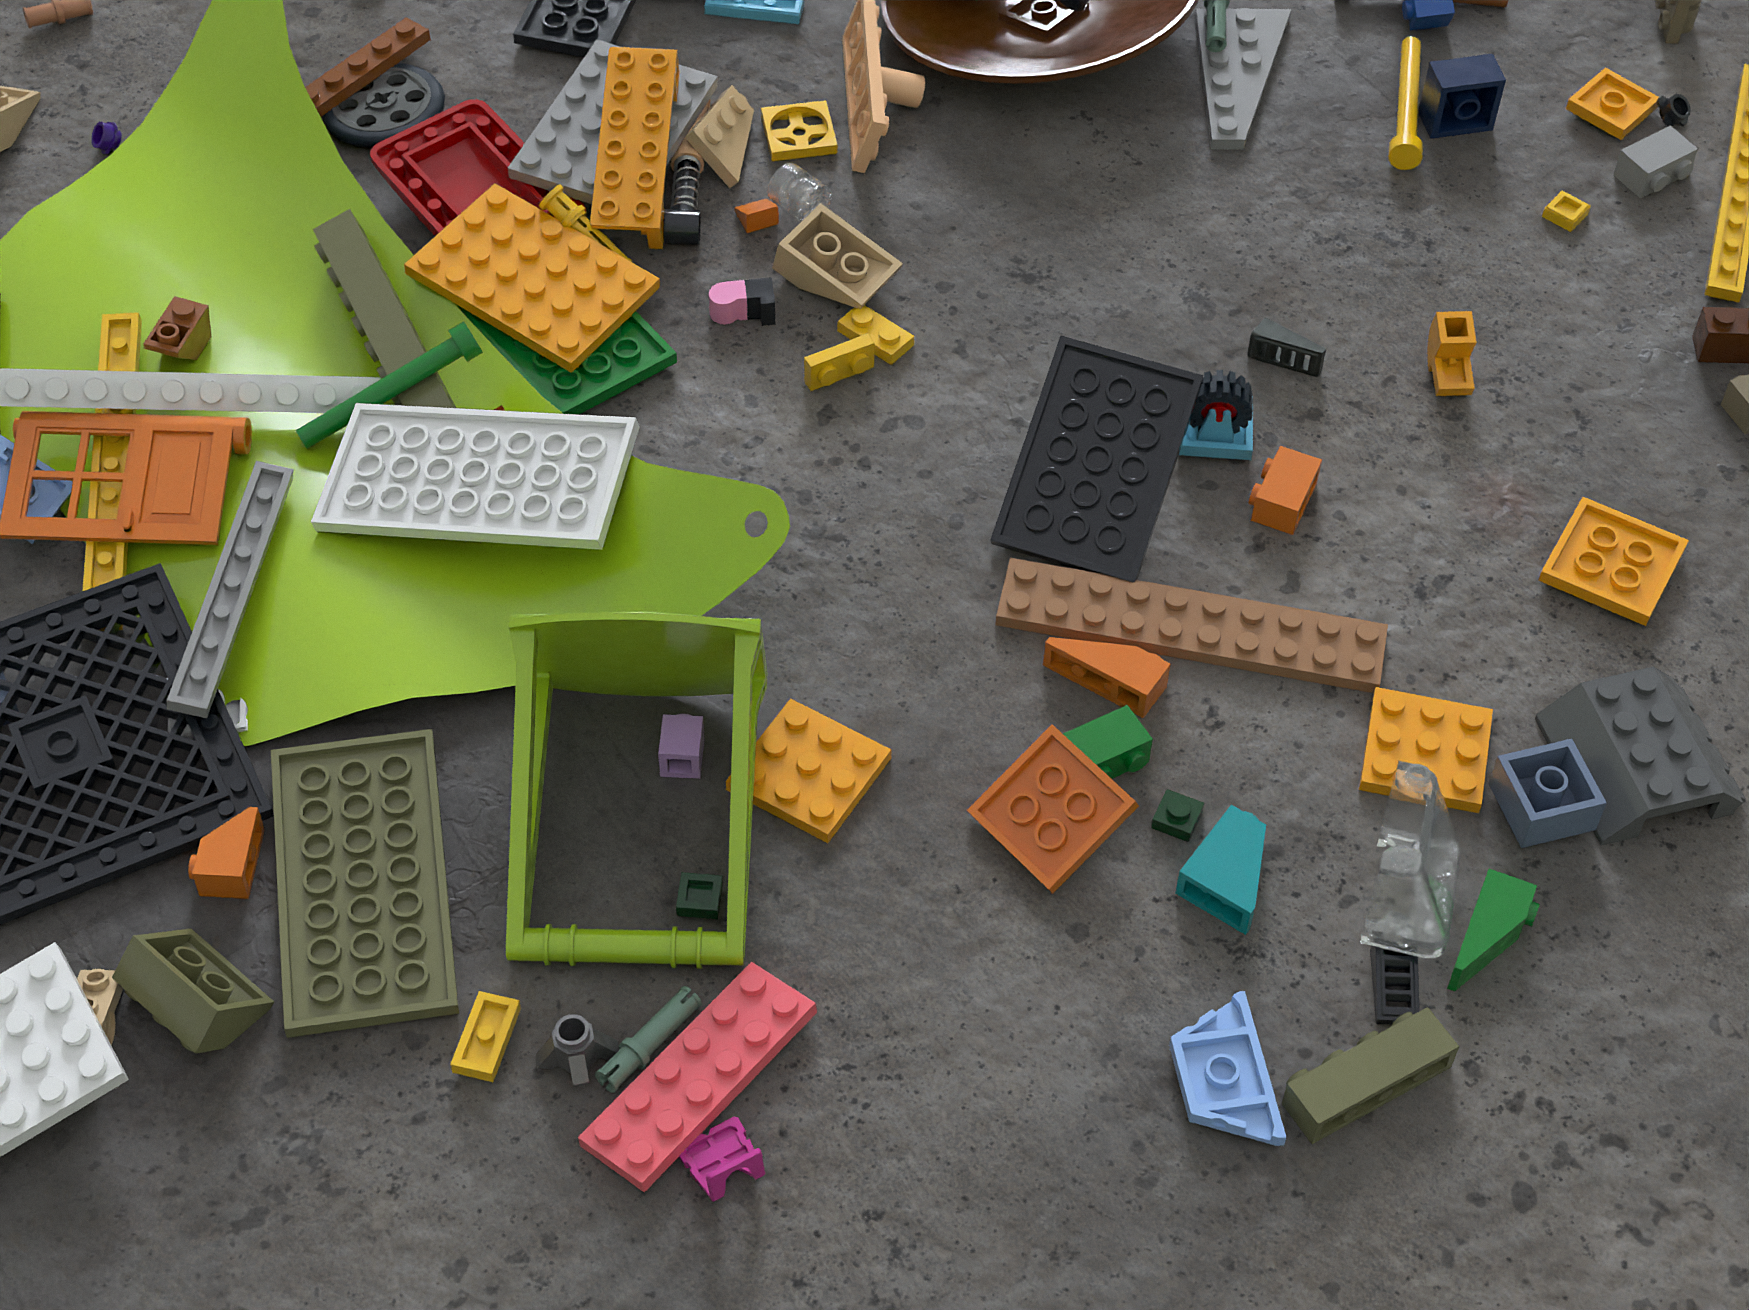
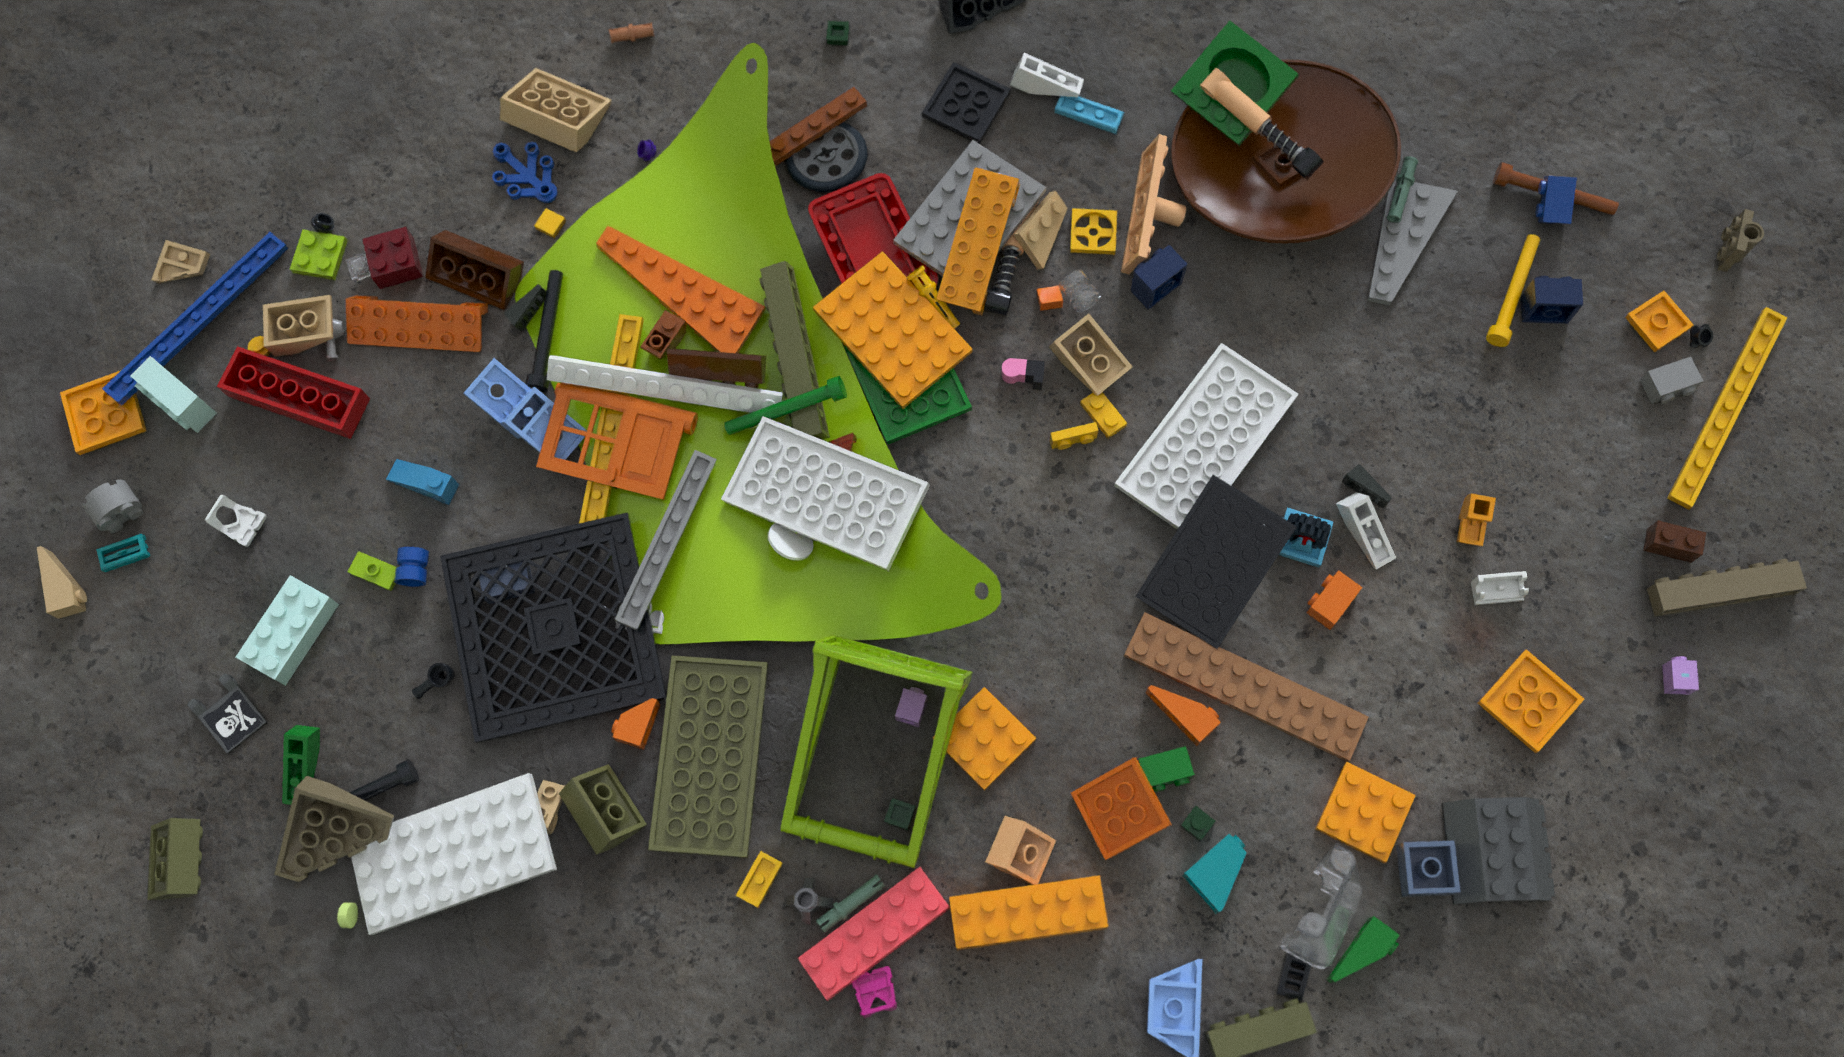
camera: 20 degrees right, 20 degrees up
(241, 298) = (704, 304): none -> orange wing
(271, 345) = (718, 366): none -> reddish brown slope
(435, 556) = (789, 543): none -> white piece
(908, 155) = (1158, 276): none -> dark blue brick
(910, 903) = (1020, 850): none -> light nougat slope
(945, 986) = (1028, 912): none -> light orange brick
(1037, 292) = (1206, 433): none -> white plate
(1302, 397) = (1366, 528): none -> white slope
(1516, 432) = (1499, 588): none -> white hinge
(1566, 211) = (1595, 406): yellow tile -> none

